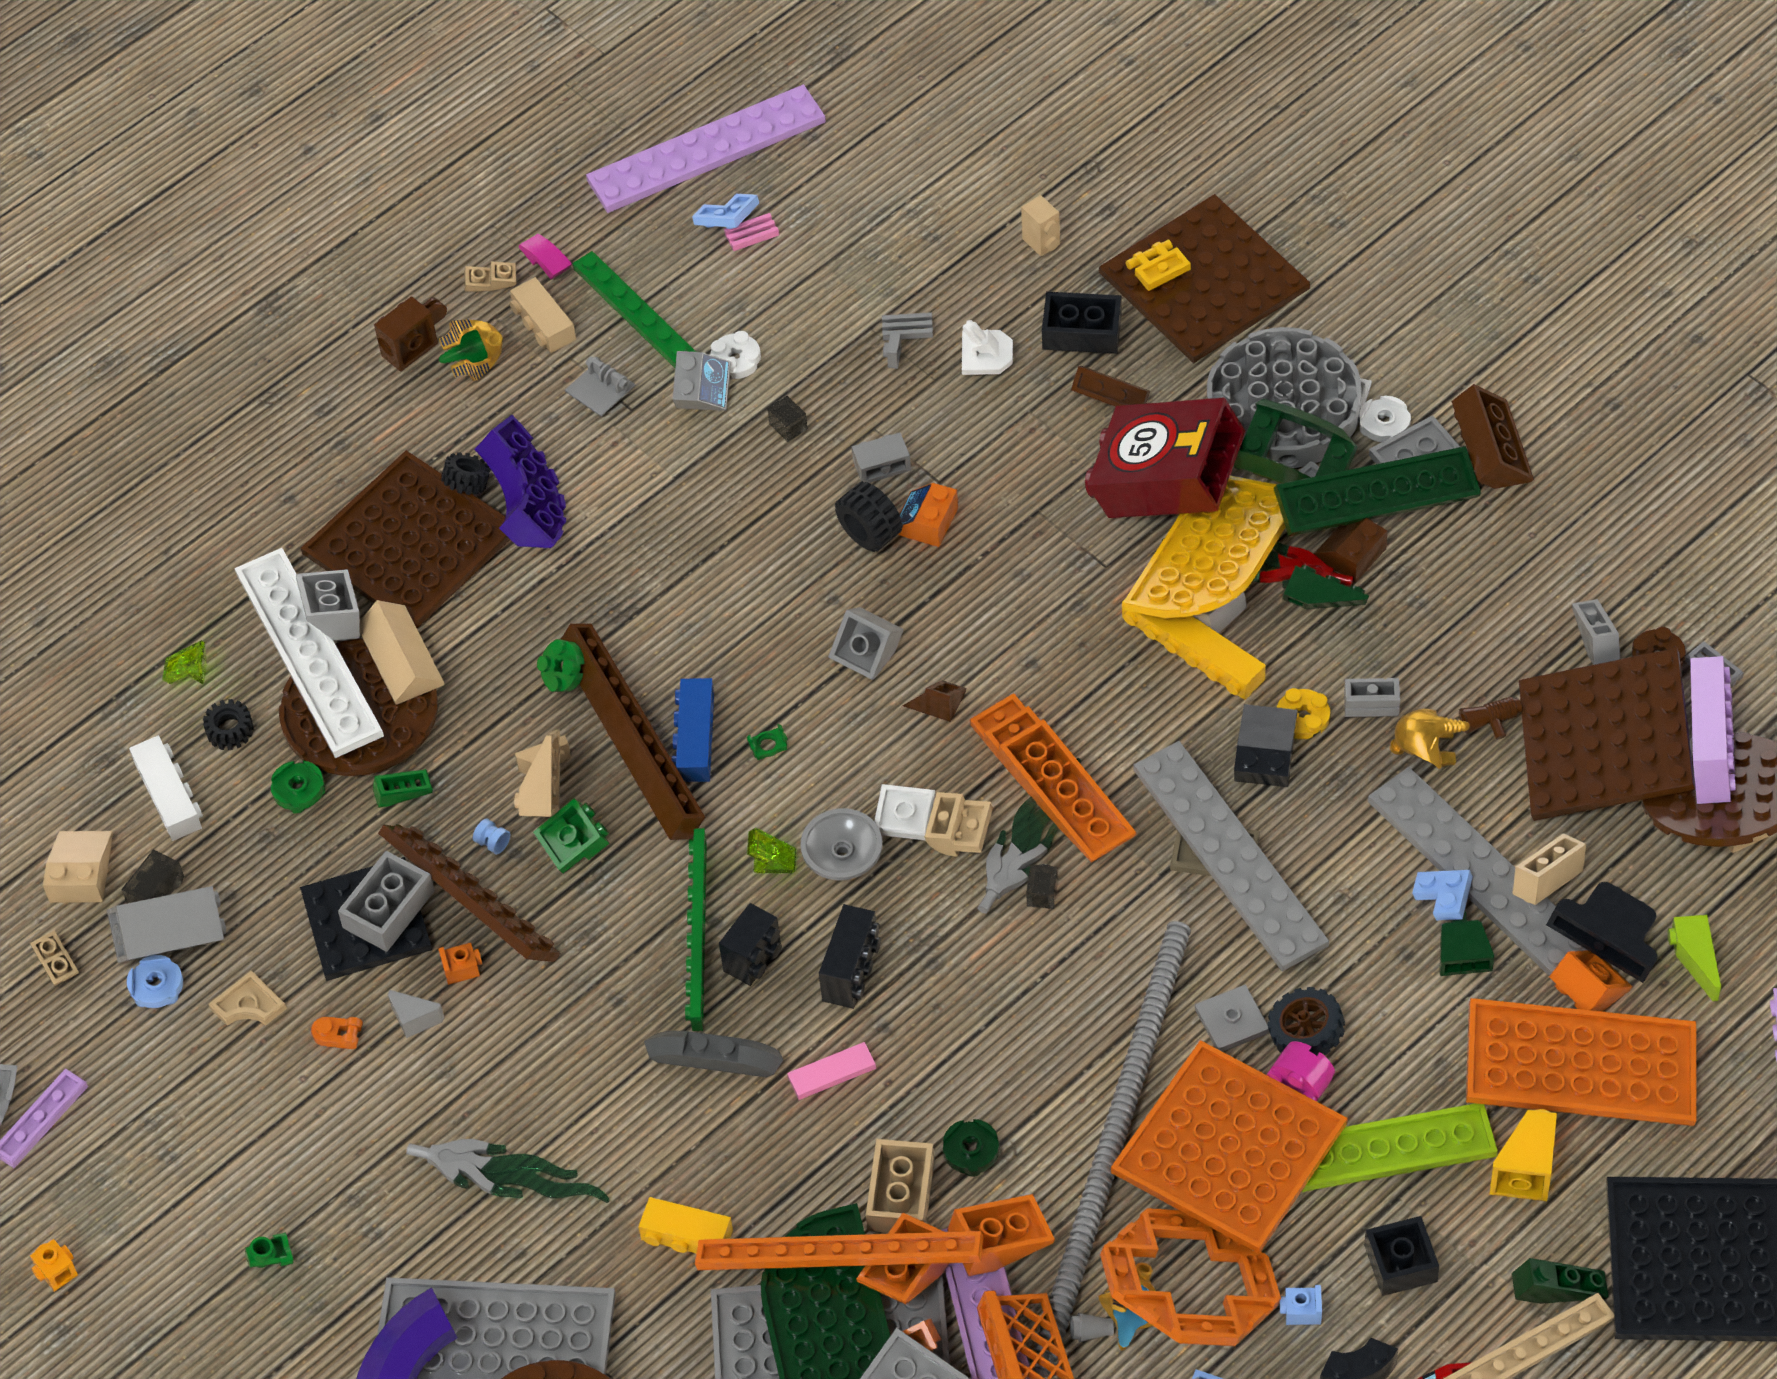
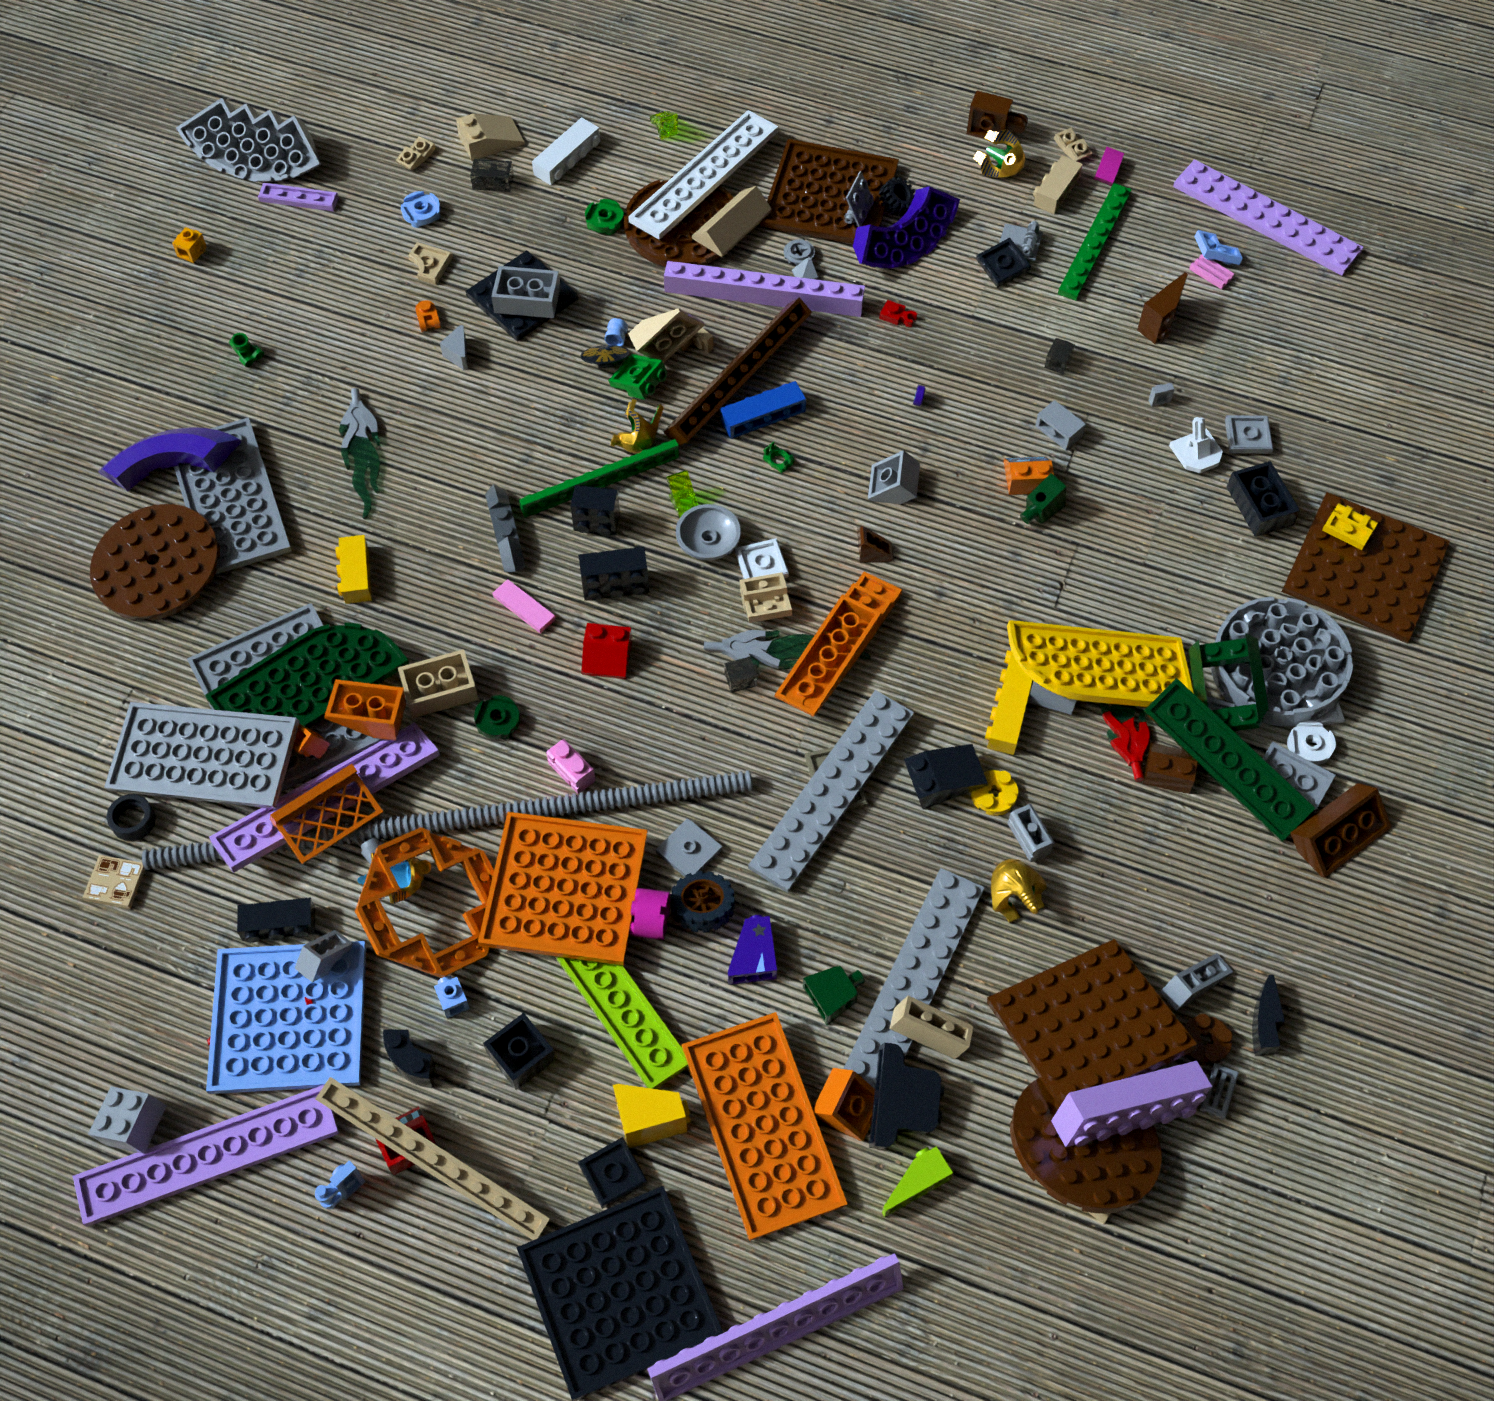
camera: 60 degrees right, 5 degrees up
(166, 924) = (455, 189): light grey slope -> none
(231, 736) = (632, 154): black tyre -> none
(330, 603) = (744, 166): light grey slope -> none
(395, 796) = (628, 257): green slope -> none
(459, 514) = (859, 201): none -> light grey hinge
(460, 962) = (508, 356): orange brick -> none
(467, 891) = (559, 337): reddish brown plate -> none
(473, 601) = (803, 247): none -> light grey gear
(514, 612) = (805, 270): none -> light grey slope
(516, 662) = (763, 288): none -> lavender brick
(519, 859) = (605, 355): none -> shield
(551, 661) = (771, 309): green plate -> none
(622, 415) = (1003, 262): none -> black plate
(629, 549) = (895, 313): none -> red plate
(663, 867) = (642, 432): none -> pearl gold piece
(701, 381) = (1056, 291): slope -> none
(744, 346) = (1100, 297): white plate -> none
(763, 572) = (919, 395): none -> dark purple tile
(791, 294) = (1160, 311): none -> reddish brown slope
(839, 1250) = (352, 662): orange plate -> none
(868, 516) = (996, 433): black tyre -> none
(907, 323) = (1194, 395): light grey tile -> none
(941, 1005) = (606, 650): none -> red slope
(977, 512) = (1045, 500): none -> dark green torso
(988, 298) = (1248, 434): none -> light grey plate
(1009, 1231) = (415, 757): orange slope -> none
(1040, 225) = (1333, 435): tan brick -> none
(1076, 1091) = (570, 766): none -> bright pink brick
(1107, 388) = (1214, 544): reddish brown plate -> none
(1165, 458) = (1161, 597): dark red brick -> none
(1315, 591) = (1109, 751): dark green slope -> none
(1384, 999) = (754, 953): none -> dark purple slope
(1448, 889) = (878, 959): light blue plate -> none
(1491, 714) = (1068, 930): reddish brown piece -> none
(1557, 1282) = (549, 1186): dark green slope -> none
(1571, 1220) = (612, 1172): none -> black plate
(1659, 591) = (1267, 1019): none -> black slope

